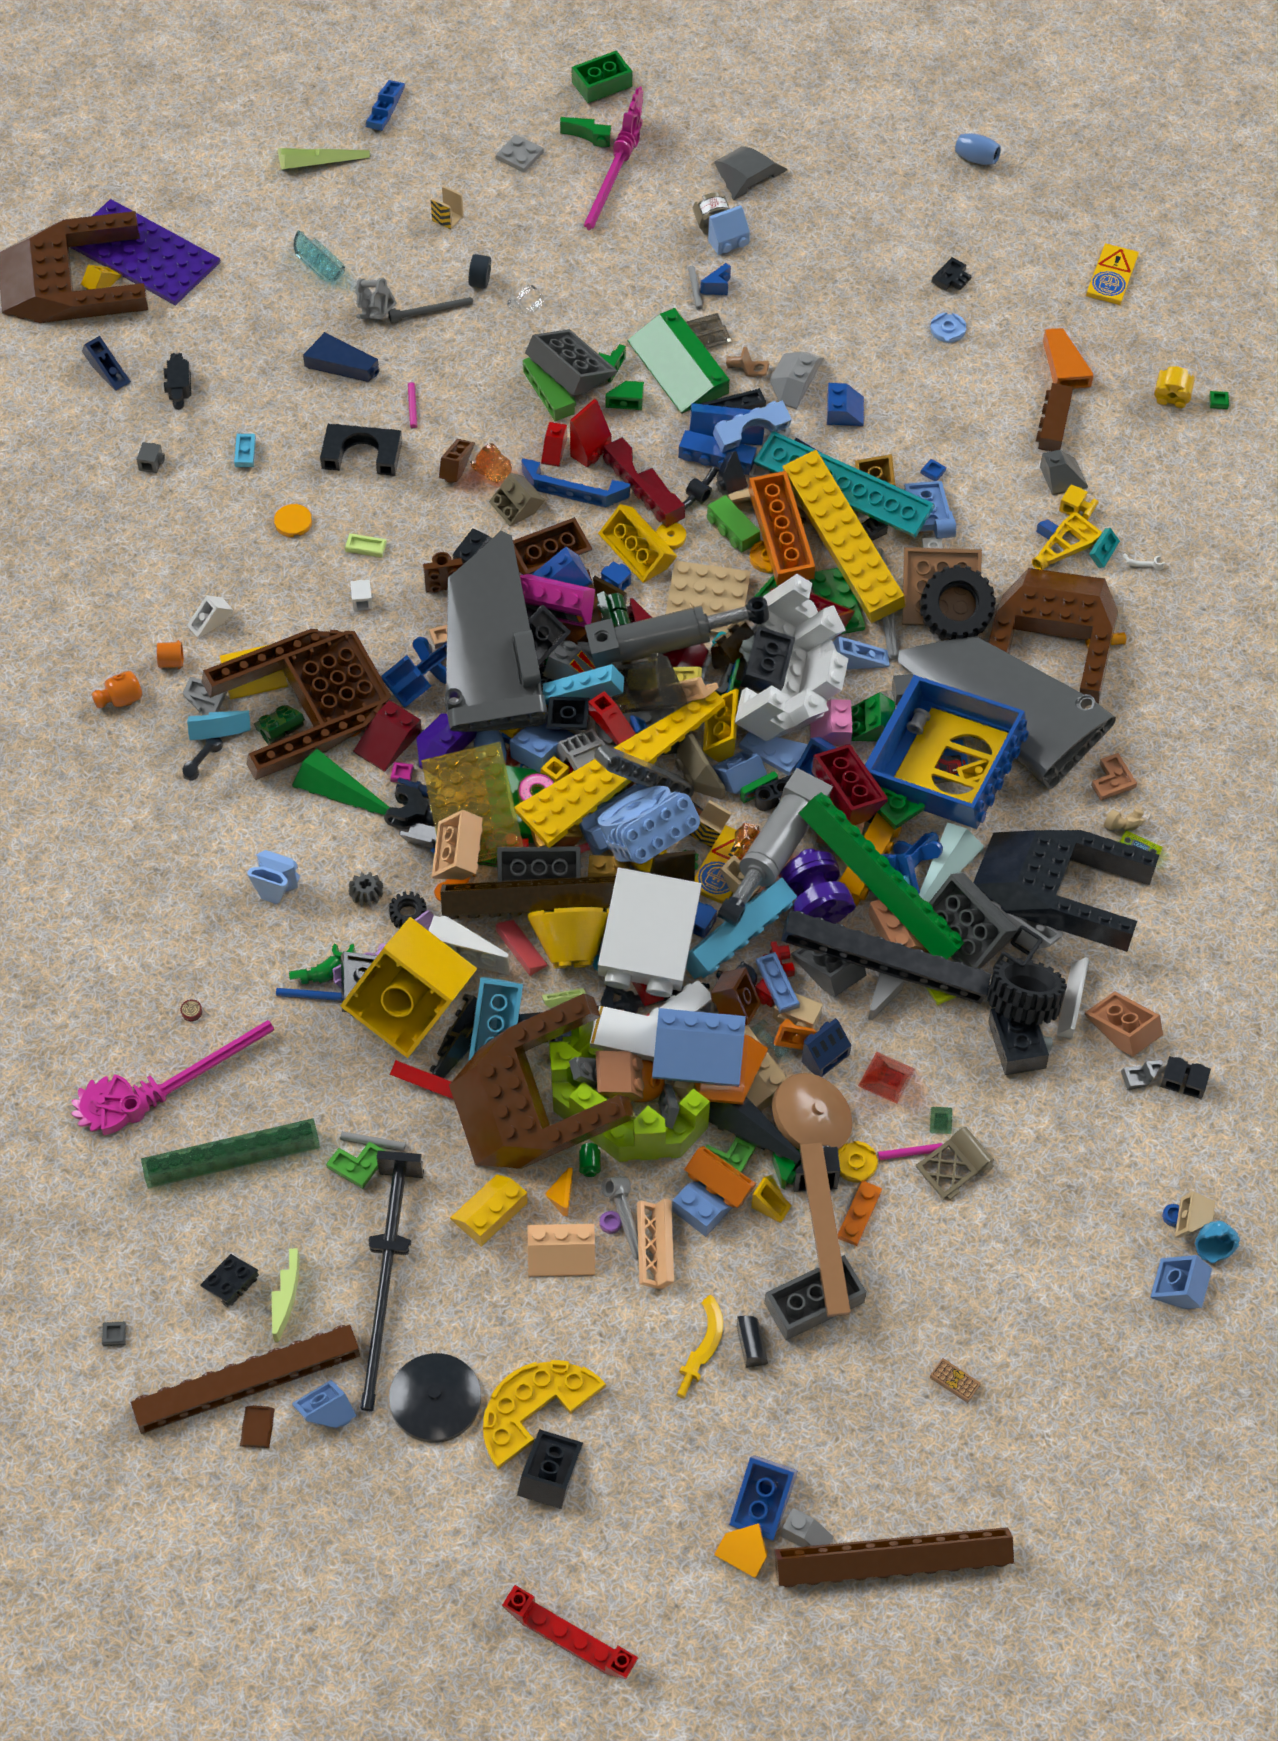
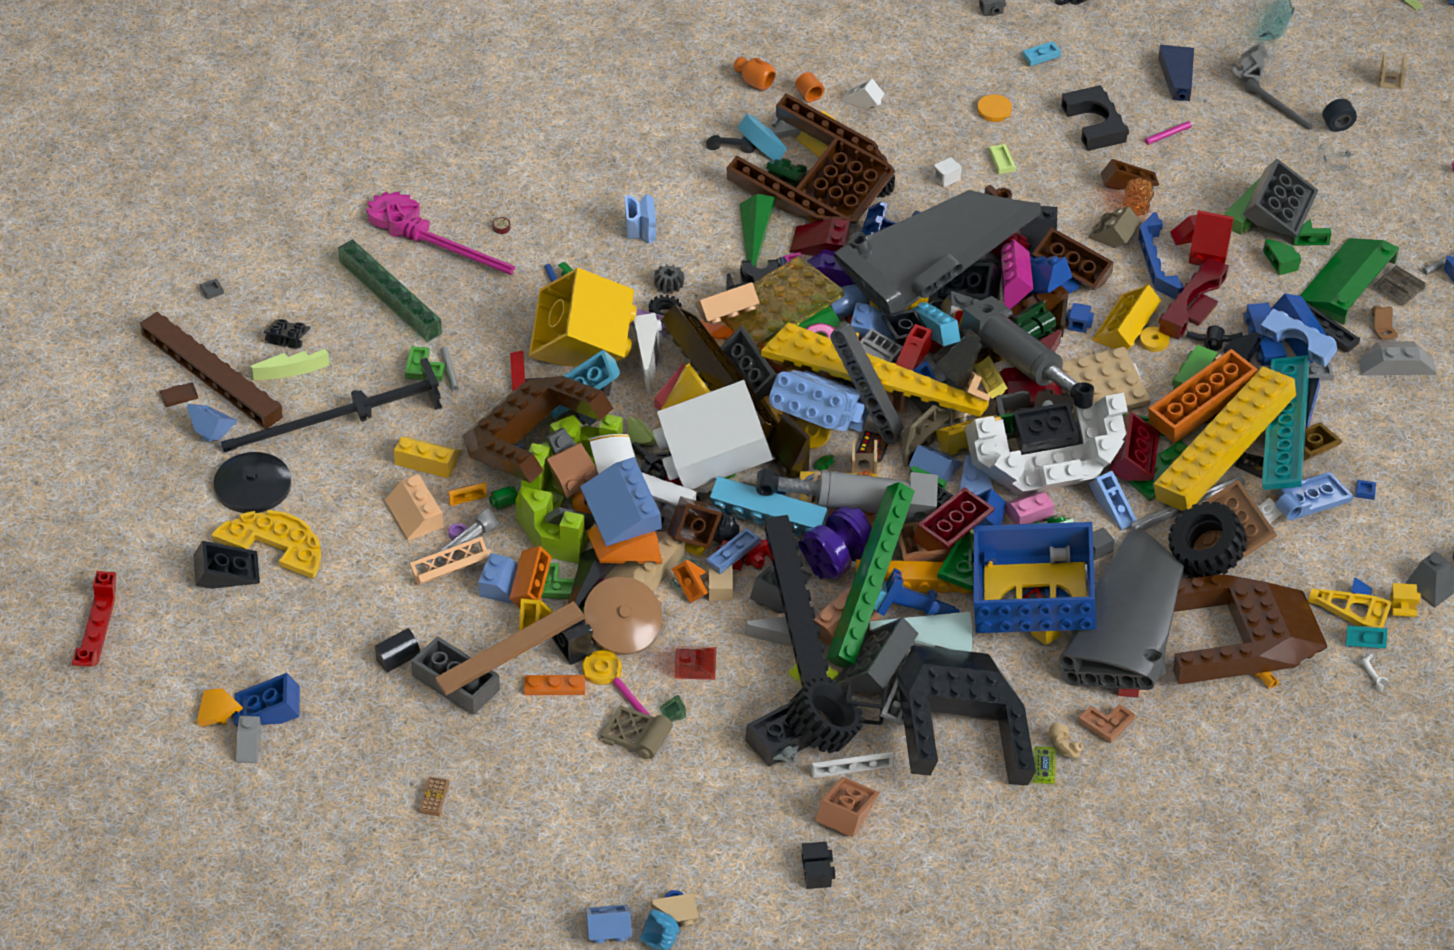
camera: 65 degrees right, 10 degrees down
(707, 1346) = (379, 629): yellow sword -> none
(826, 1048) = (691, 605): dark blue slope -> none
(844, 405) = (1387, 401): blue slope -> none
(894, 1557) = (253, 800): reddish brown brick -> none
(1140, 1076) = (800, 833): dark grey slope -> none

